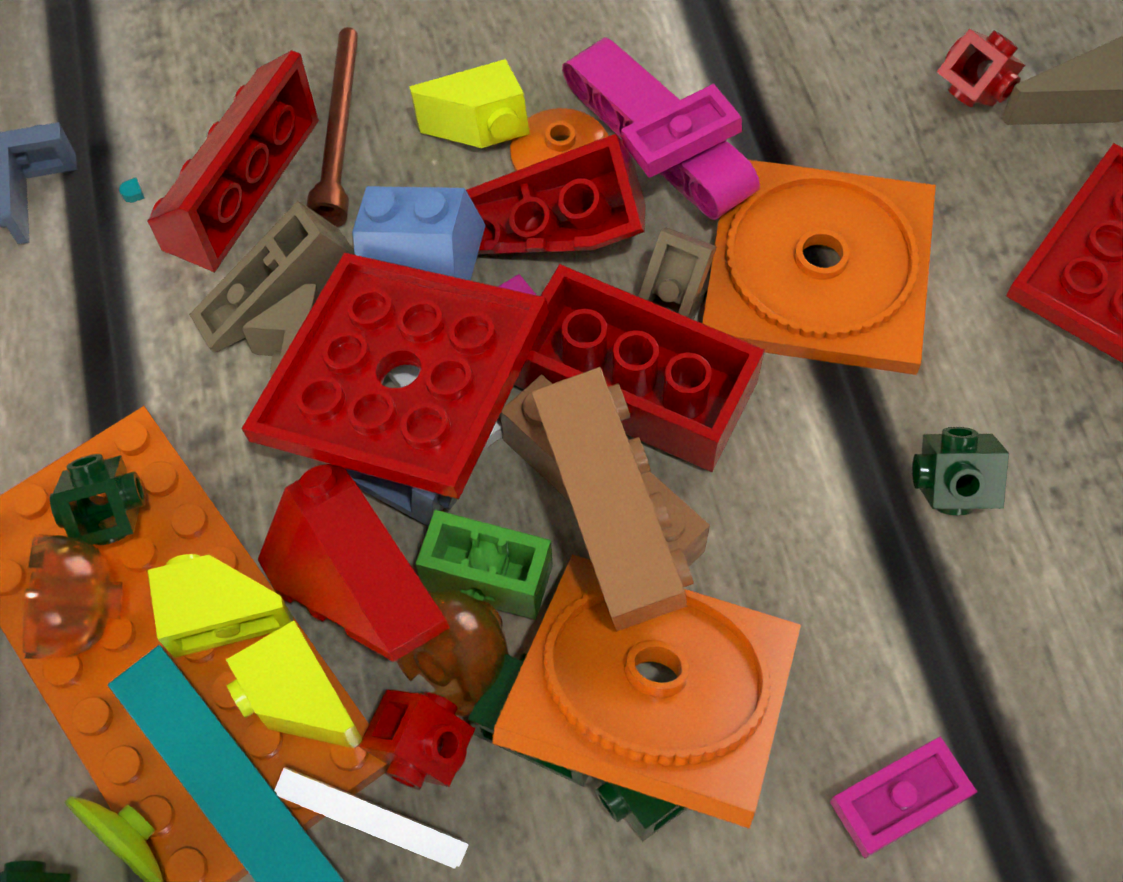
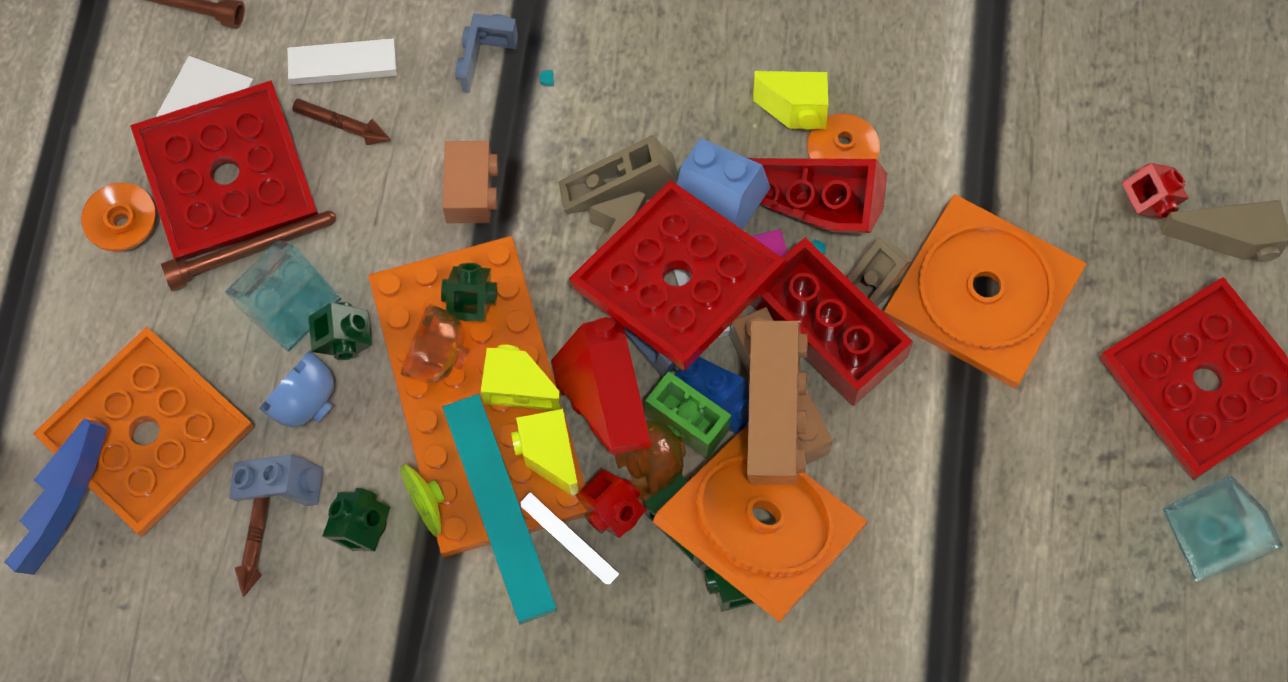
camera: 20 degrees right, 5 degrees up
(57, 354) = (468, 182): none -> nougat brick
(237, 164) = (622, 86): red slope -> none
(328, 195) = (673, 132): copper piece -> none
(523, 507) = (720, 387): none -> blue bracket
(625, 92) = (913, 157): dark pink beam -> none
(681, 130) = (921, 171): dark pink plate -> none
(902, 797) = (884, 643): dark pink plate -> none
(961, 471) = (1008, 463): dark green brick -> none

